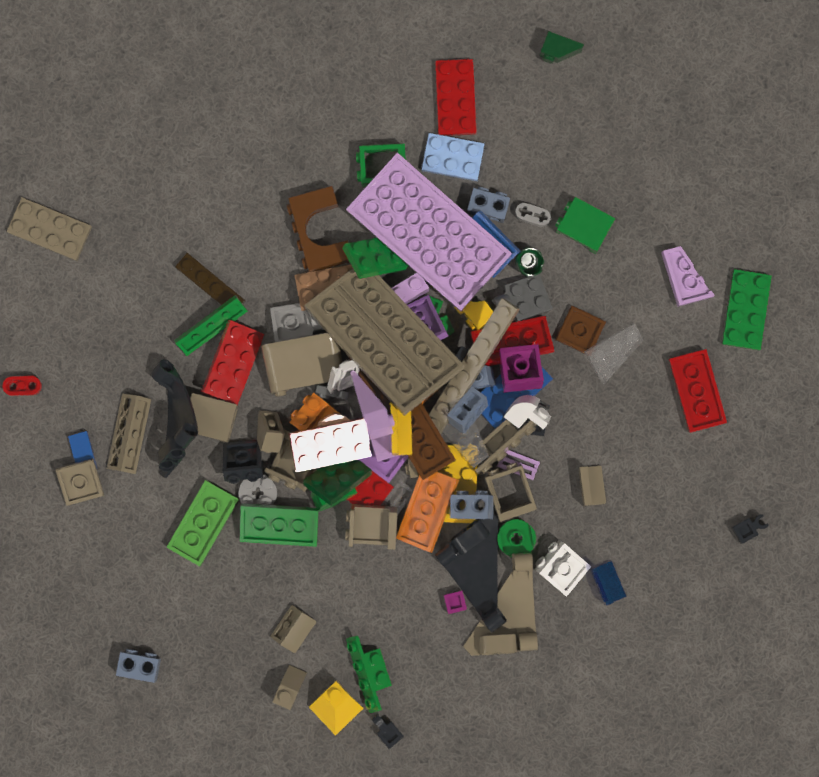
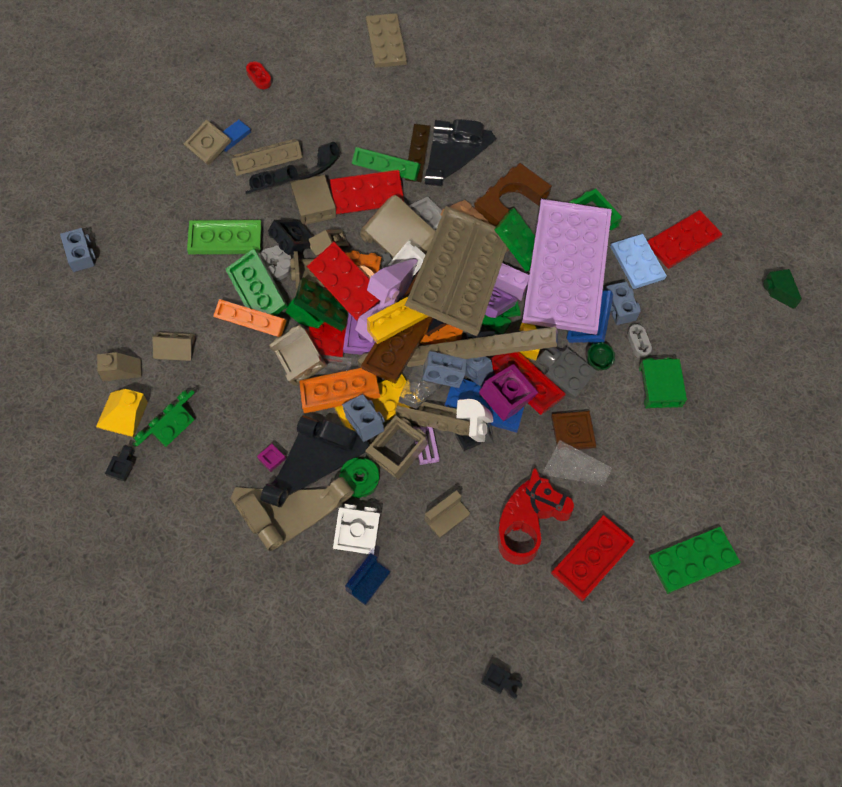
camera: 50 degrees right, 20 degrees down
(226, 247) = (454, 147): none -> black panel
(308, 548) = (250, 318): none -> orange tile
(621, 411) = (527, 504): none -> red animal
(684, 279) = (680, 489): lavender wing -> none

